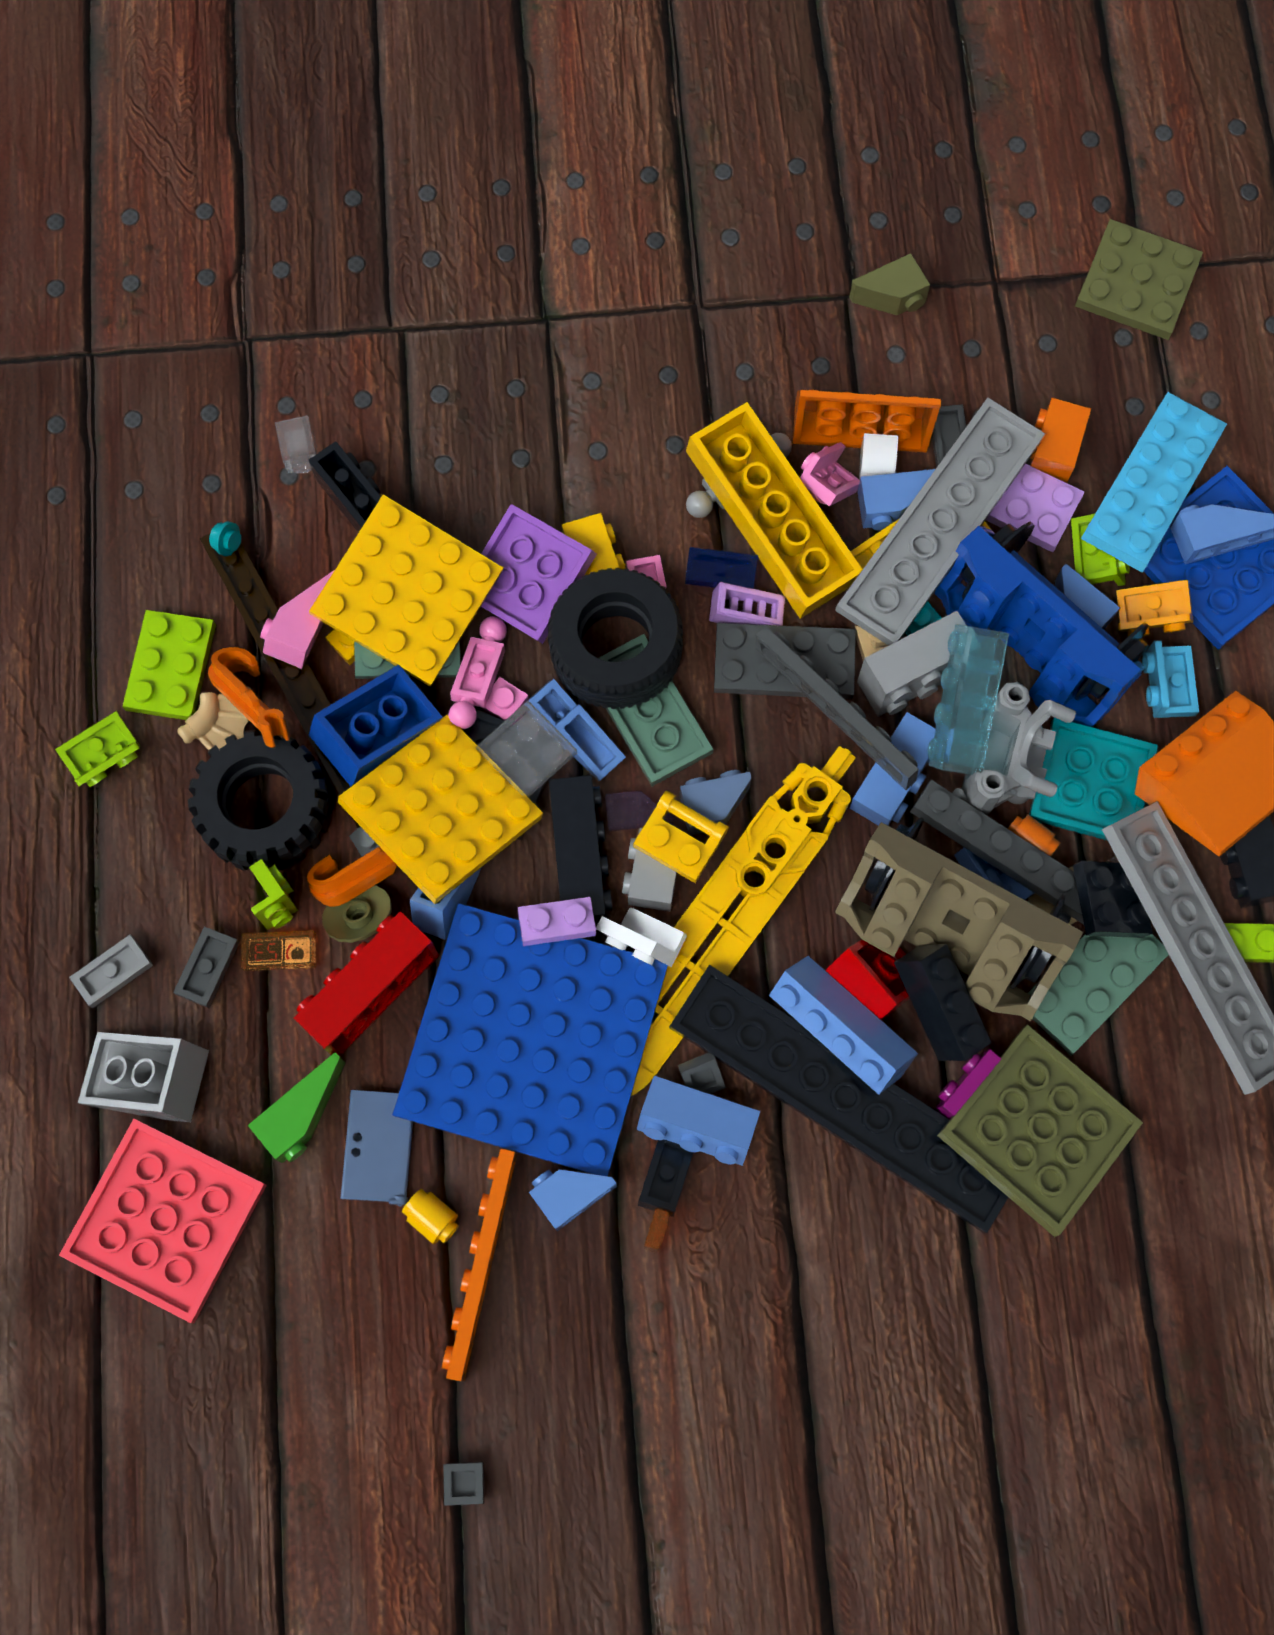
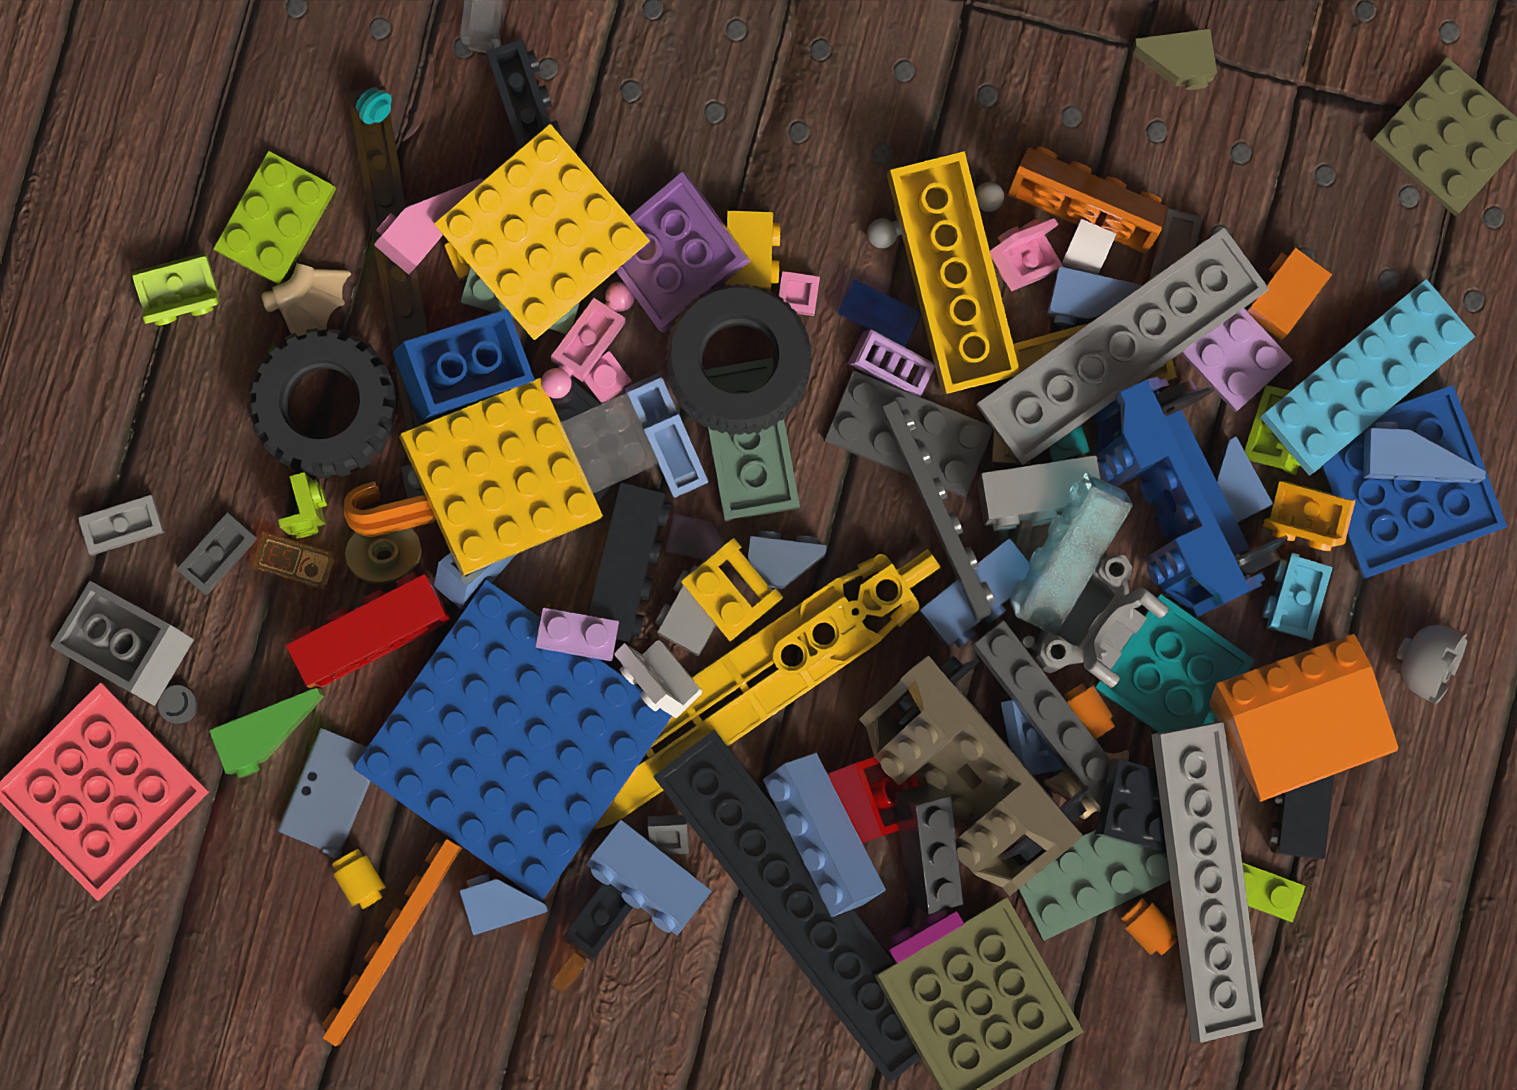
camera: 15 degrees right, 10 degrees up
(212, 1115) = (177, 704): none -> dark grey tile
(235, 659) = (336, 287): orange piece -> none
(1163, 1008) = (1150, 927): none -> orange brick

